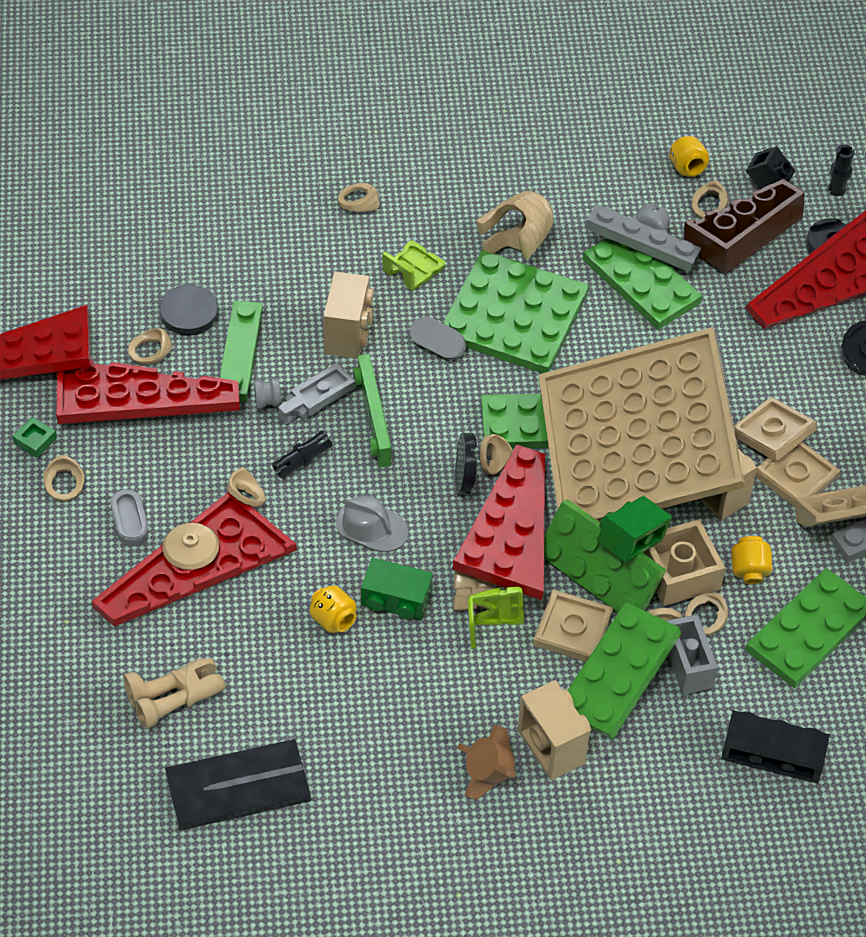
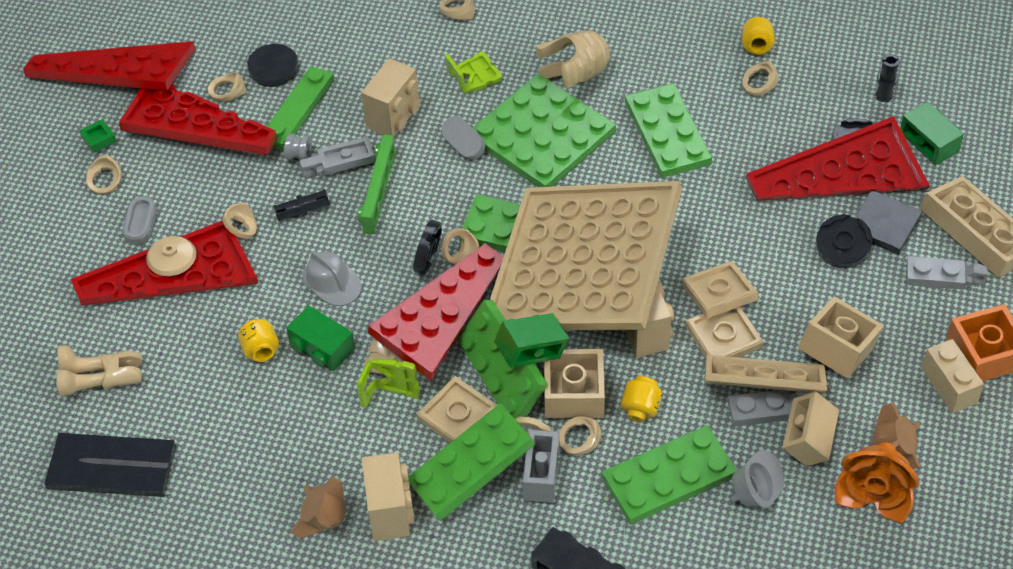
camera: 25 degrees right, 0 degrees up
(645, 234) = (683, 92): light grey plate -> none
(746, 225) = (778, 107): reddish brown wedge -> none
(769, 167) = (824, 64): black brick -> none

